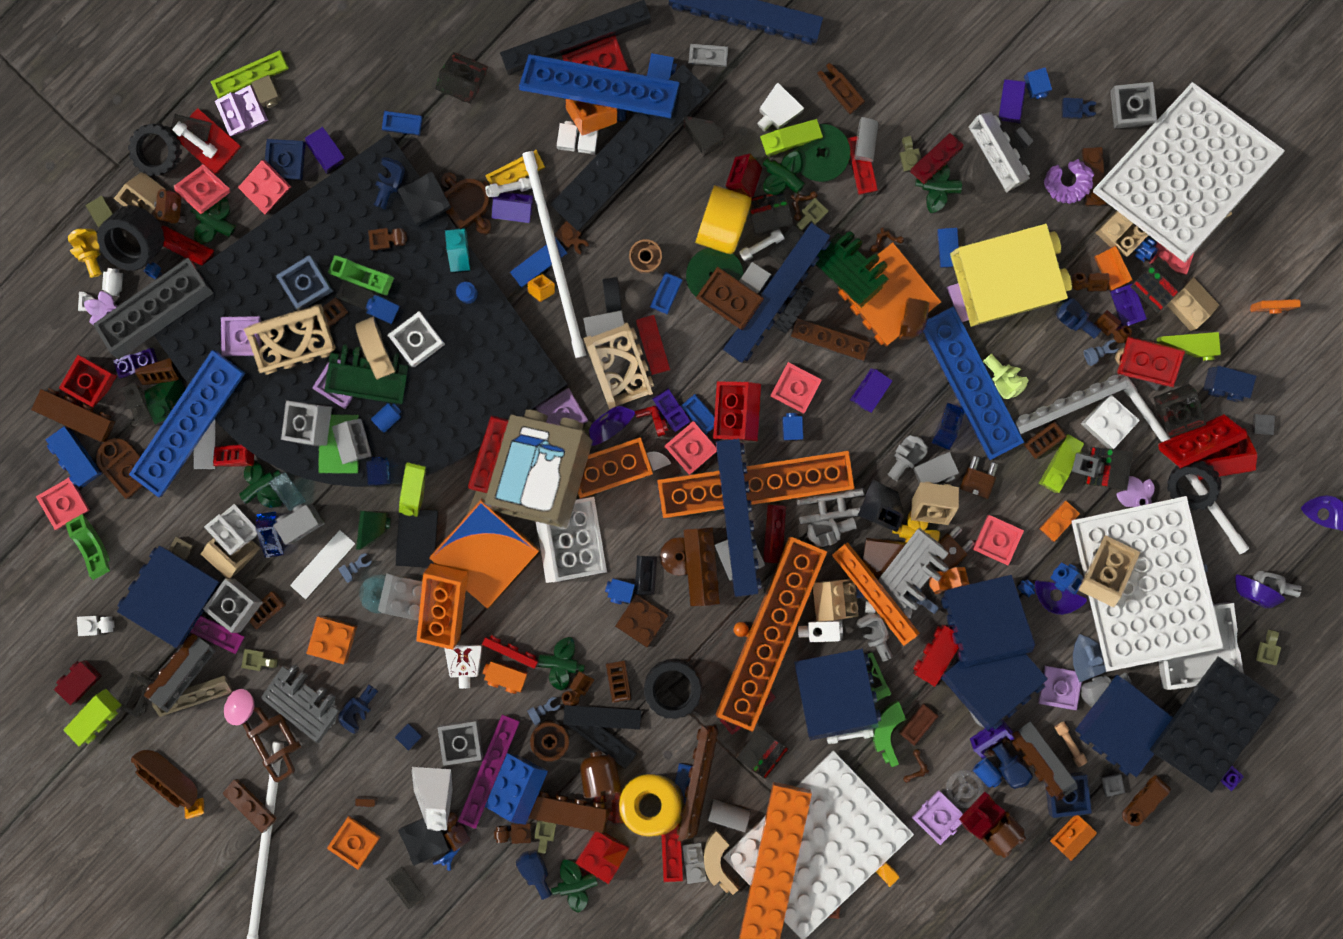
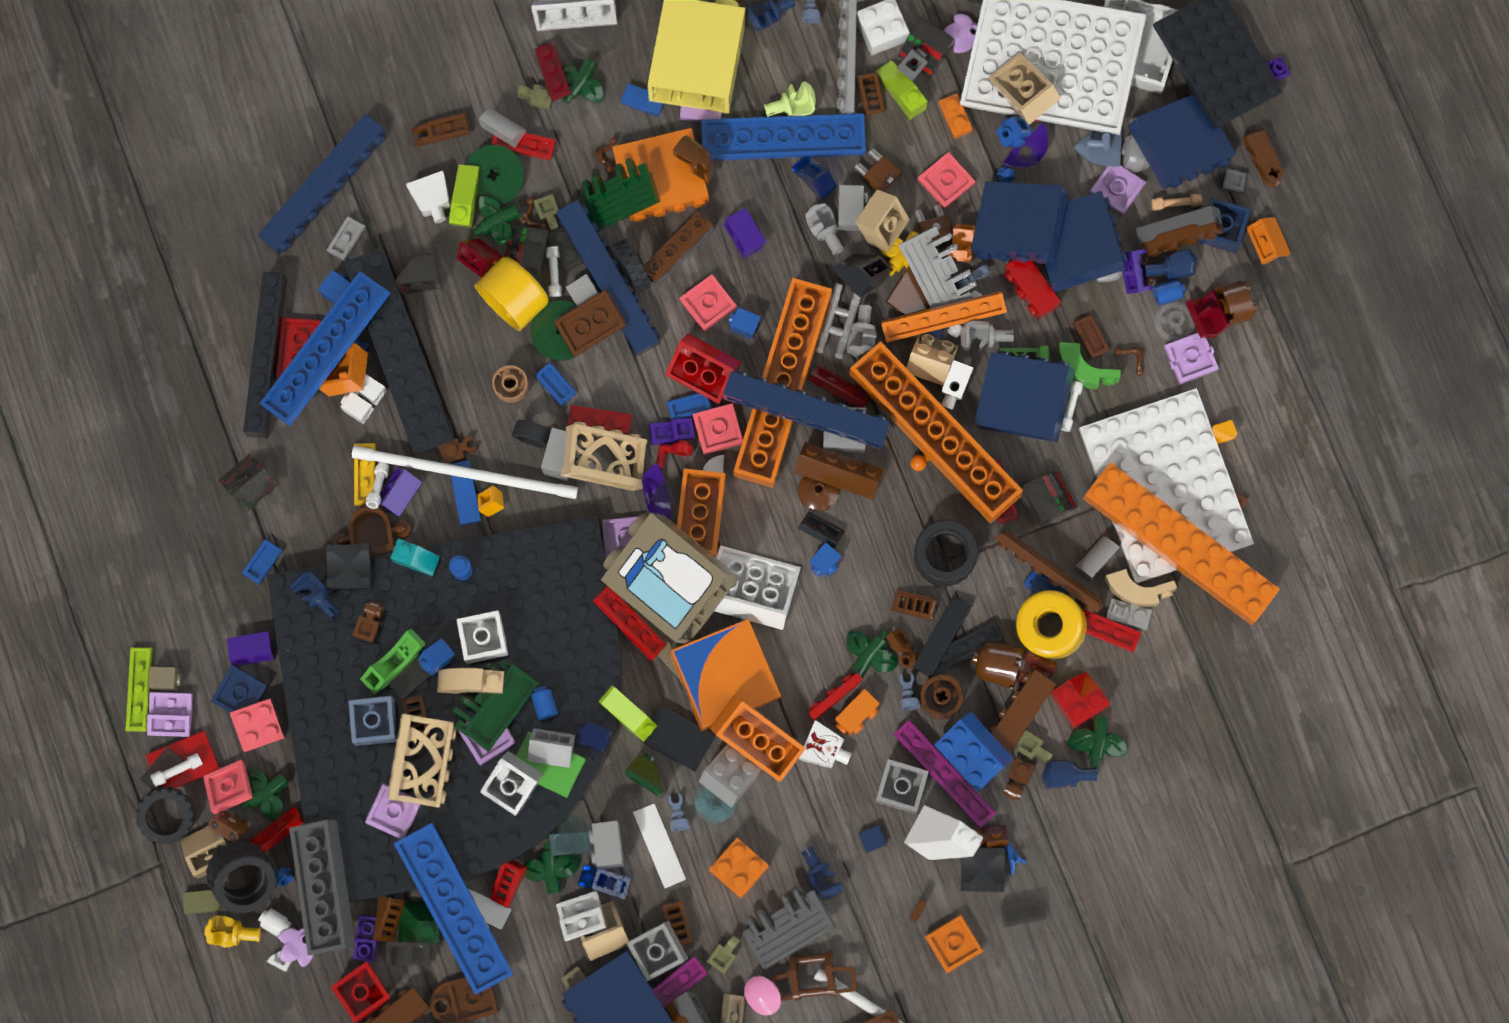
camera: 60 degrees left, 10 degrees down
(641, 620) = (864, 555): reddish brown plate -> none

